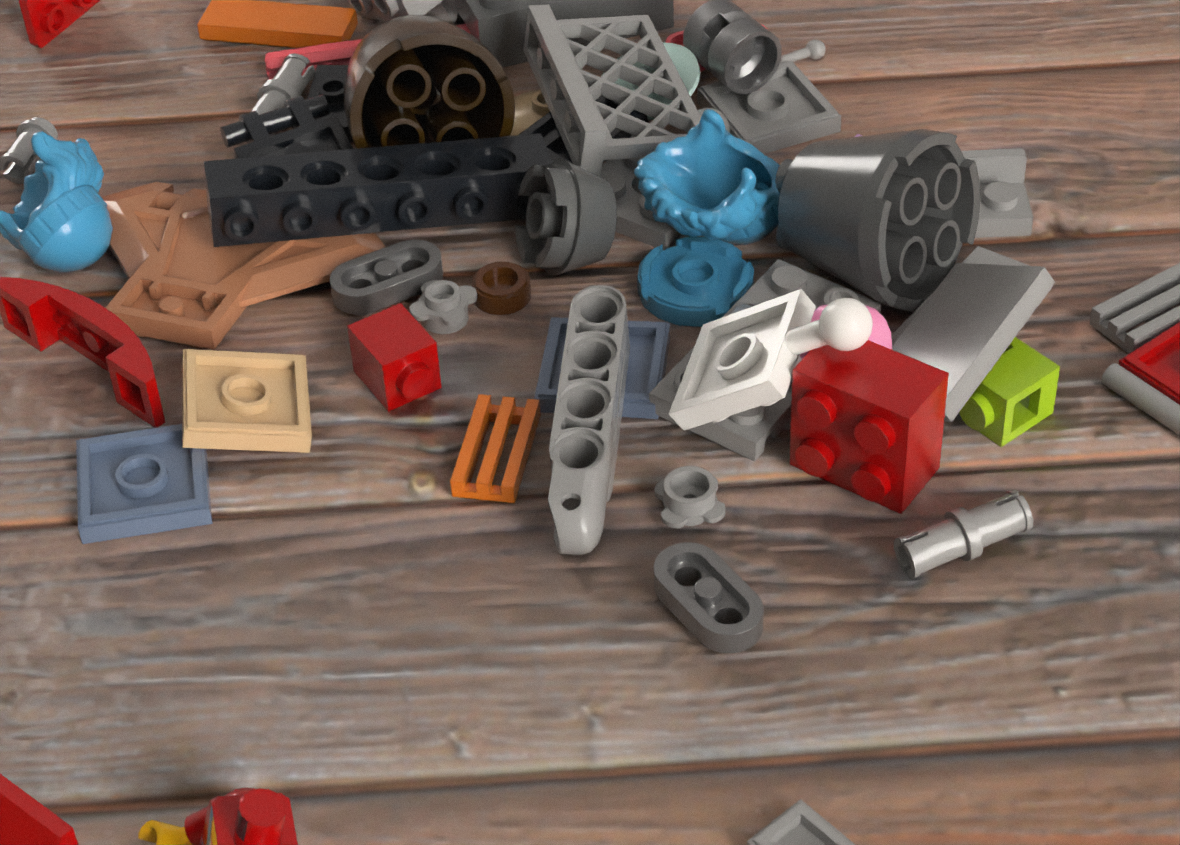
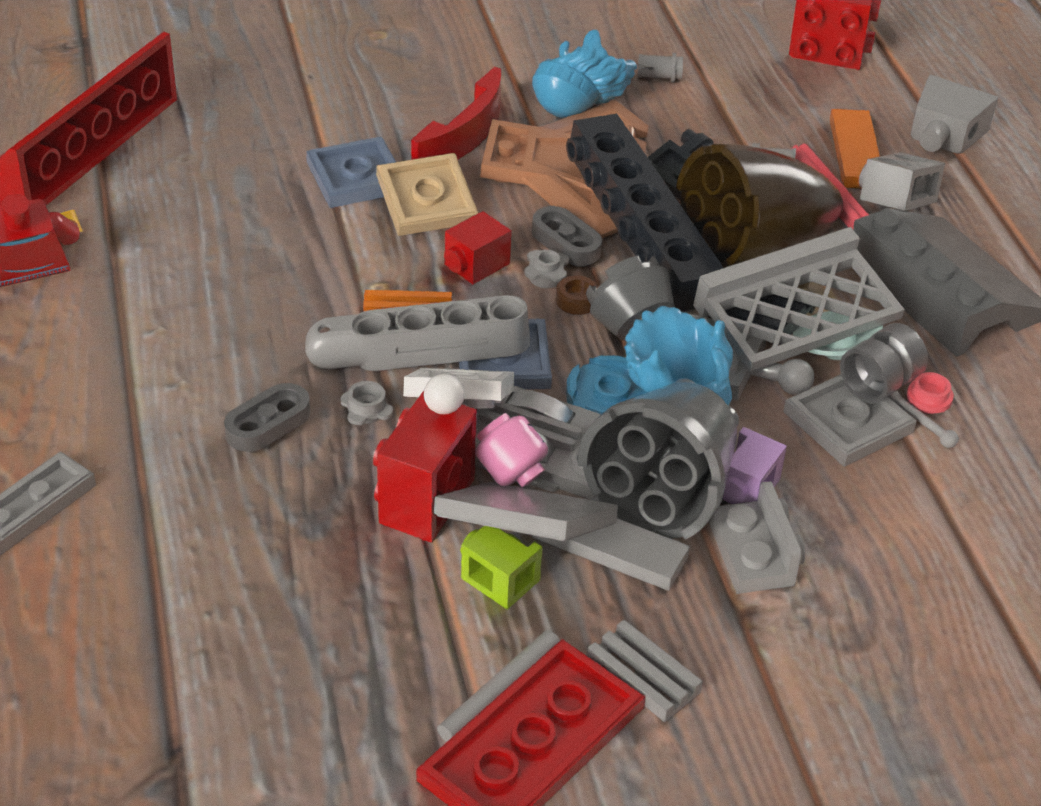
camera: 75 degrees right, 0 degrees up
(963, 534) = (343, 545): light grey pin -> none

